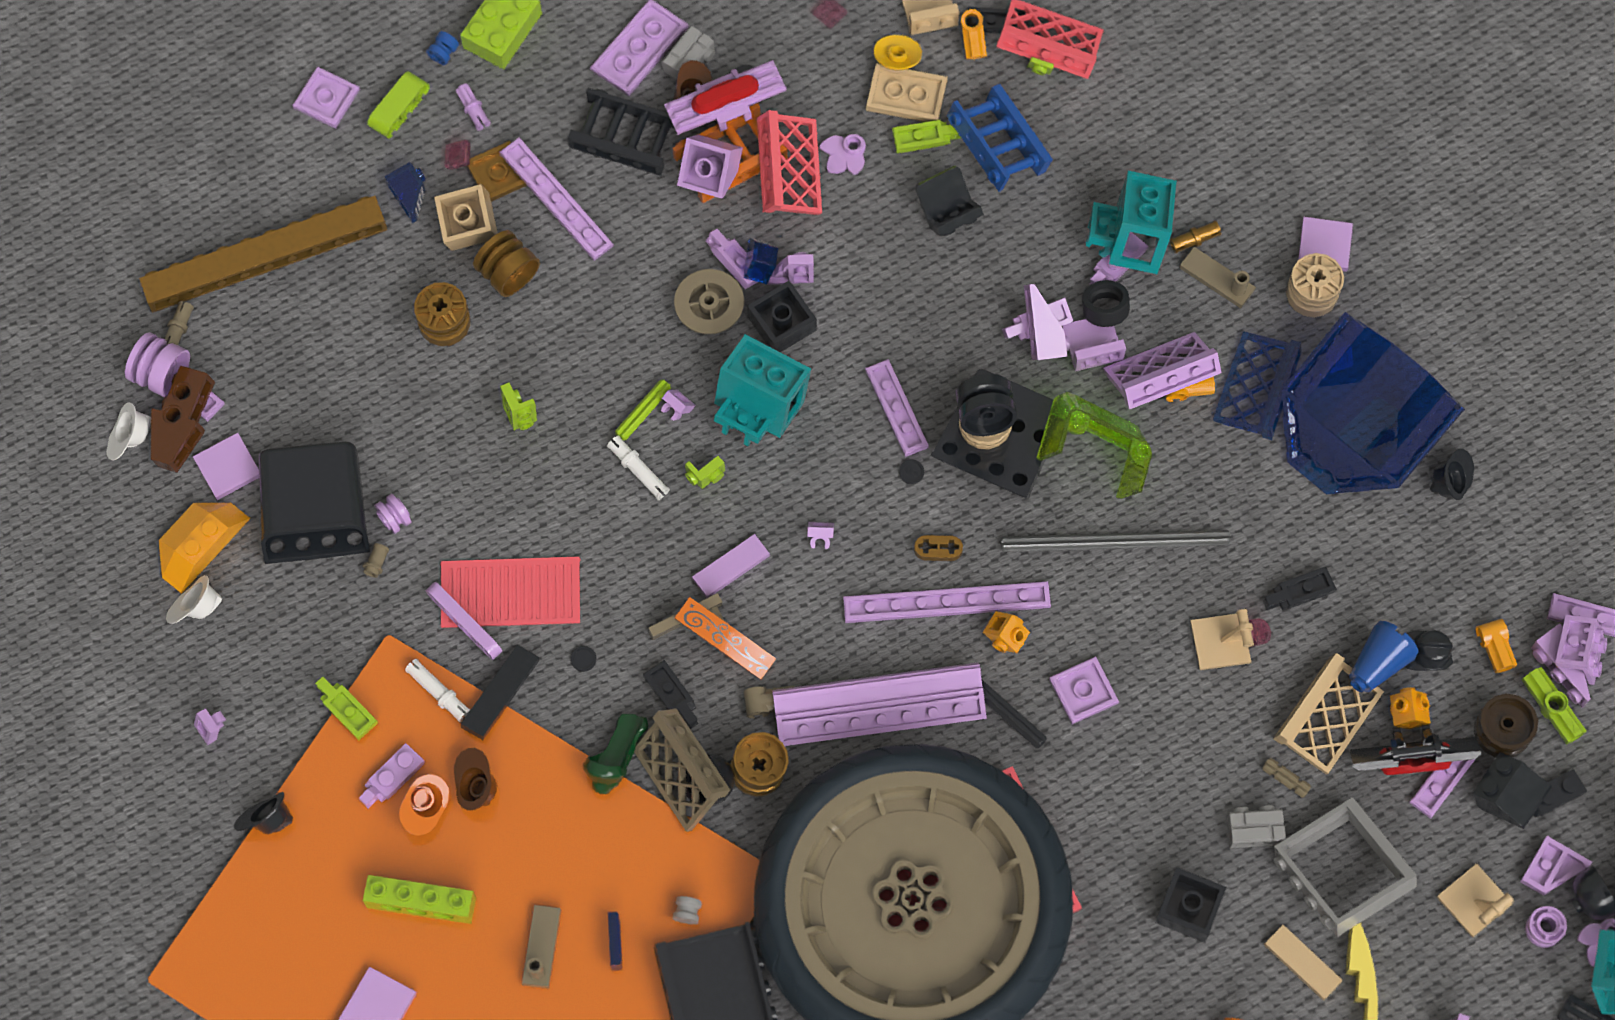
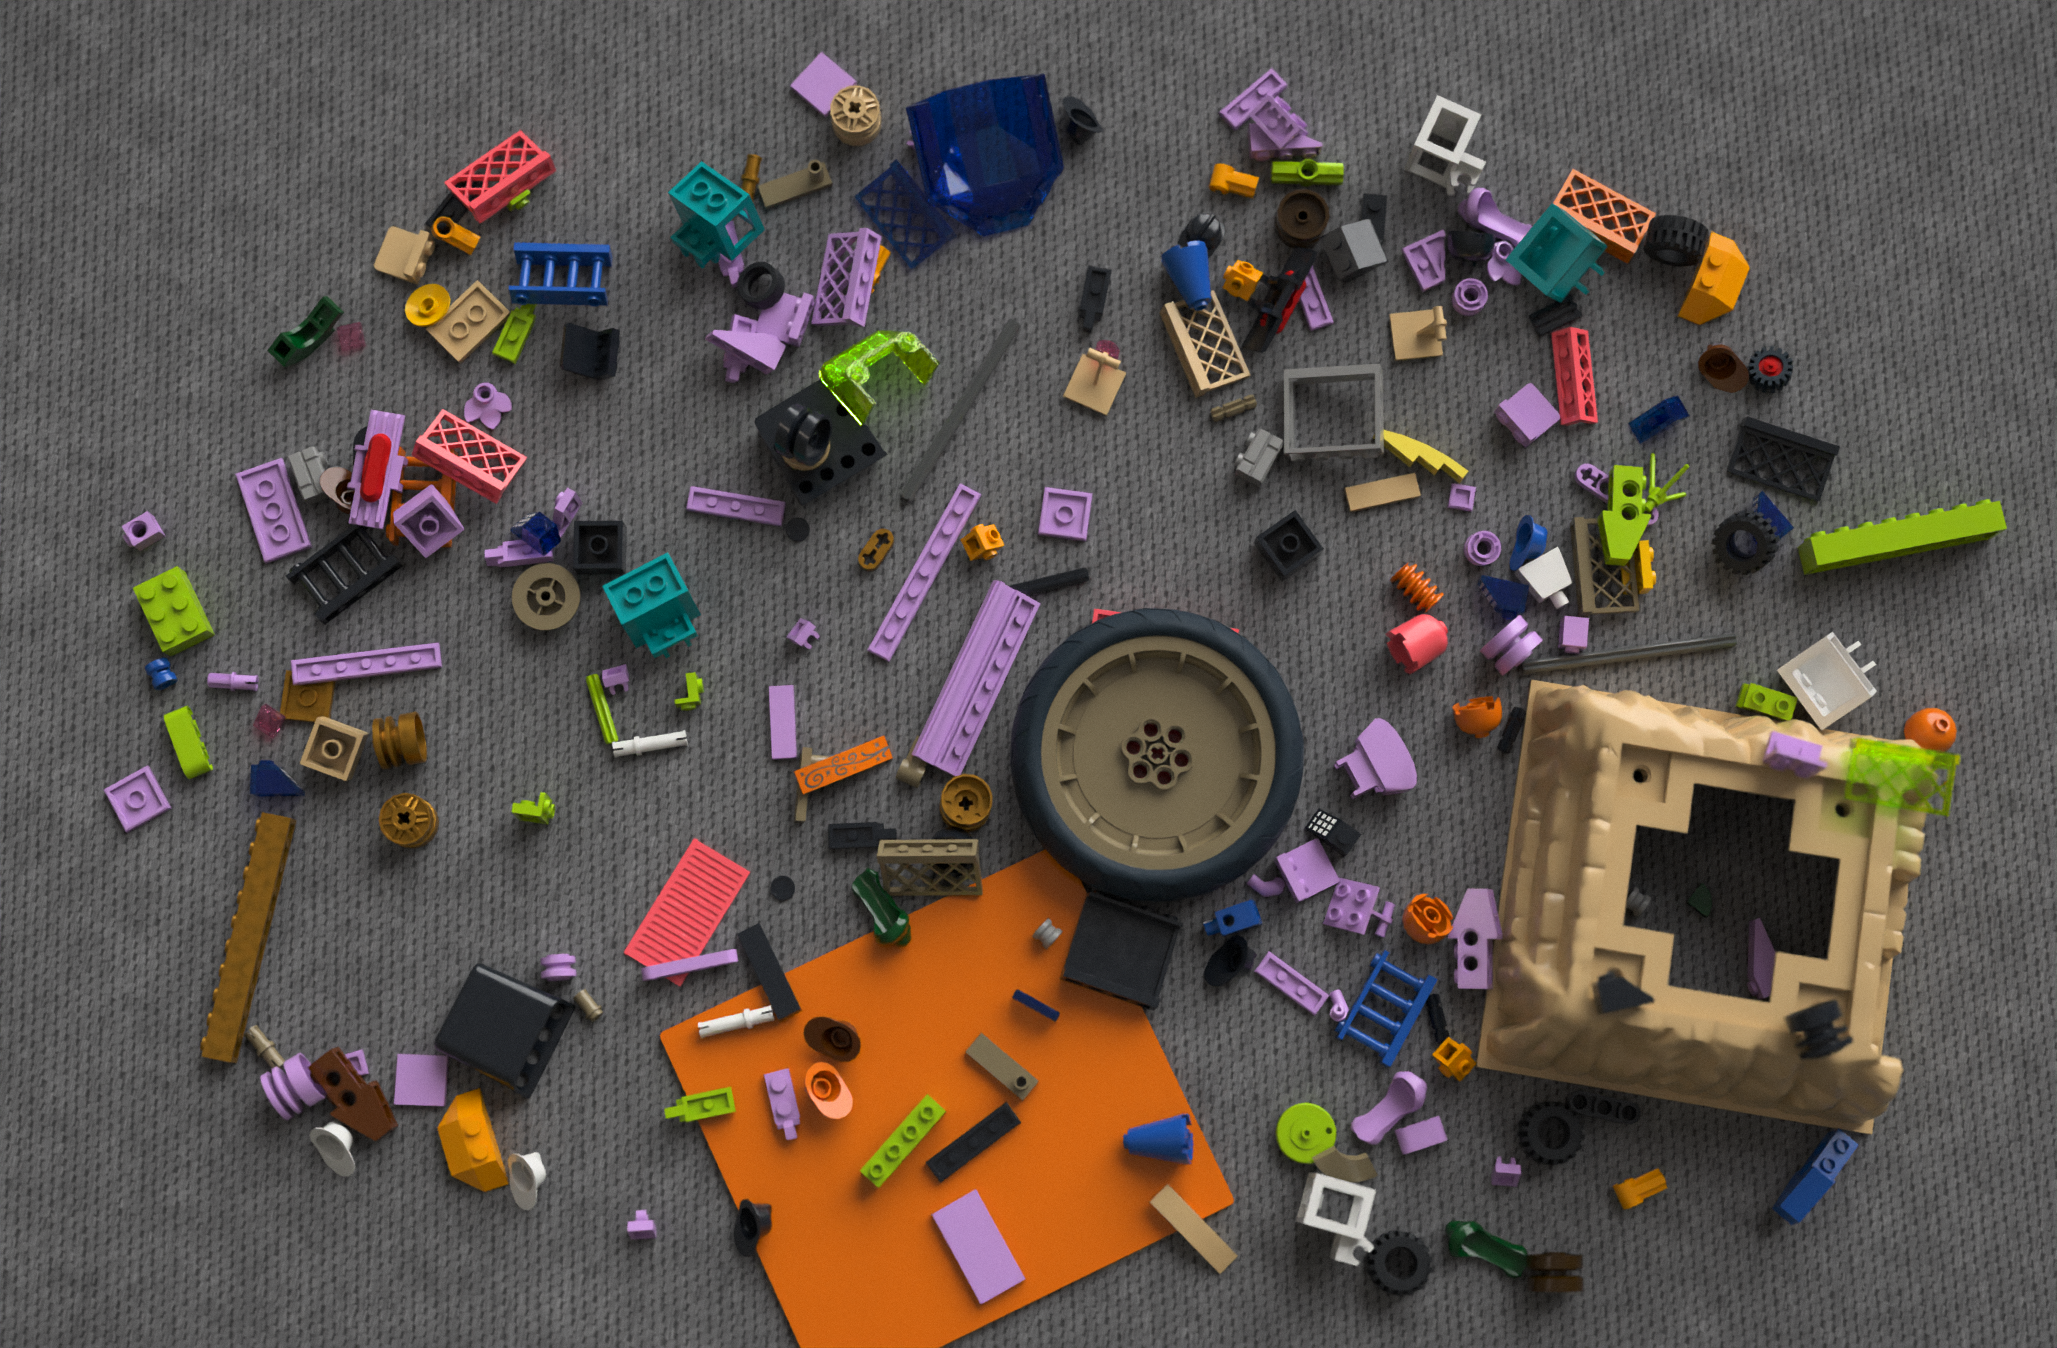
camera: 60 degrees left, 10 degrees up
(457, 964) = (973, 1142): none -> black tile

